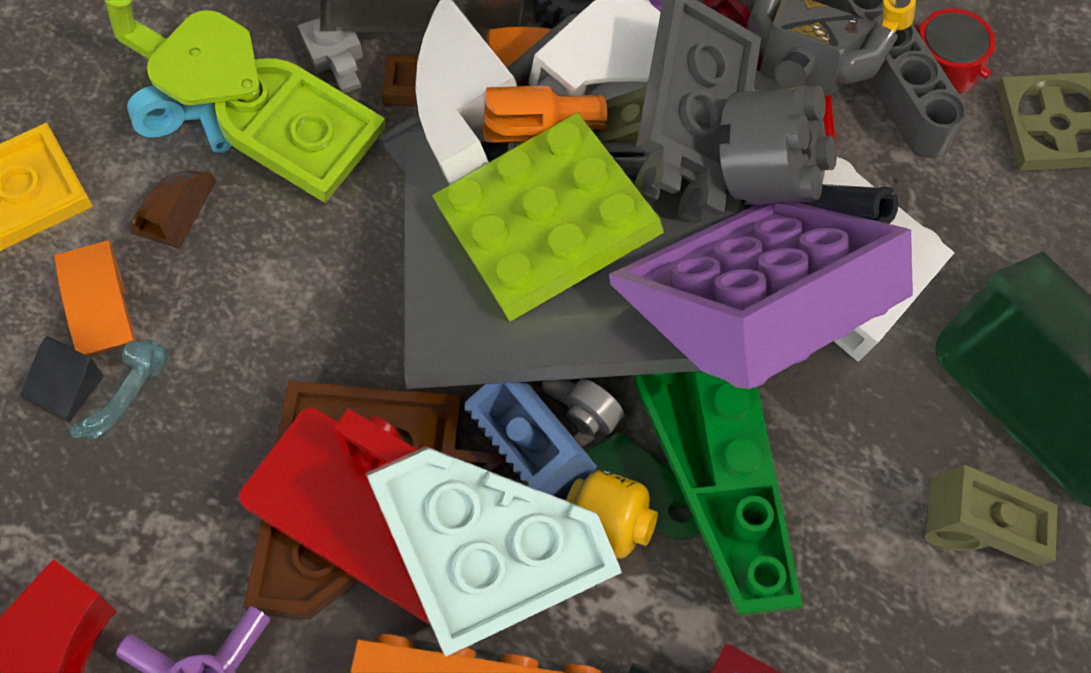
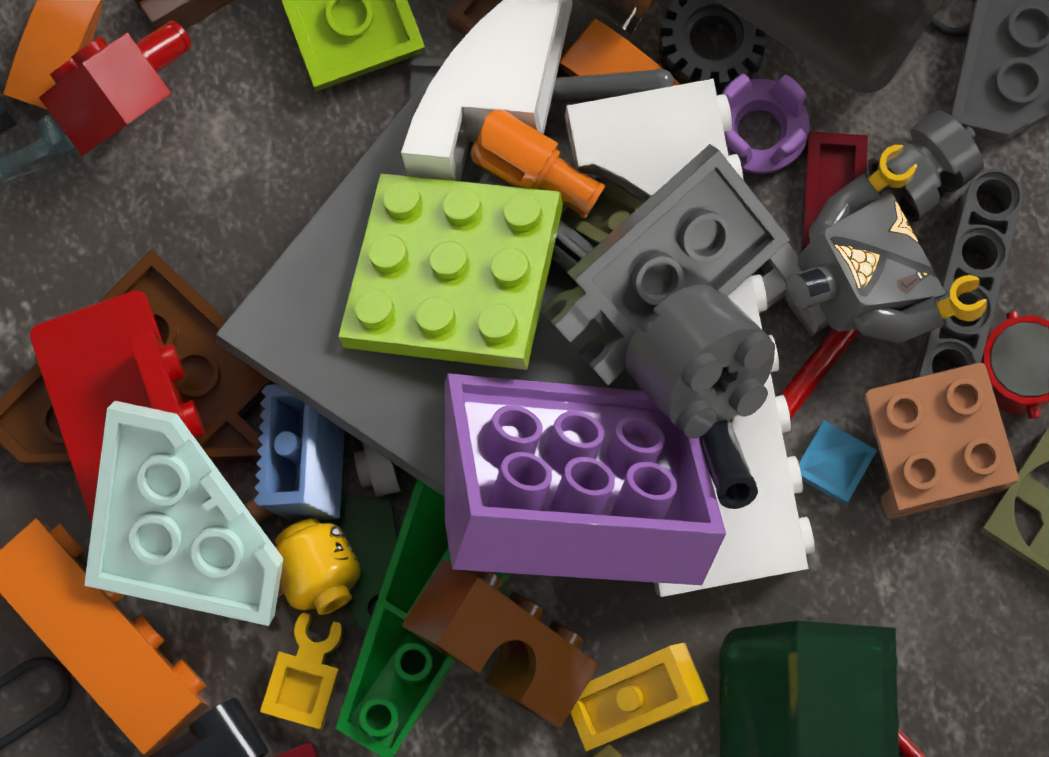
camera: 40 degrees right, 15 degrees up
(167, 279) = (112, 84): none -> red brick
(672, 611) = (302, 684): none -> yellow plate
(788, 438) = (470, 618): none -> reddish brown arch
(905, 182) = (835, 462): none -> dark azure tile
(920, 429) = (638, 696): none -> yellow plate
(957, 119) = (940, 440): none -> nougat bracket

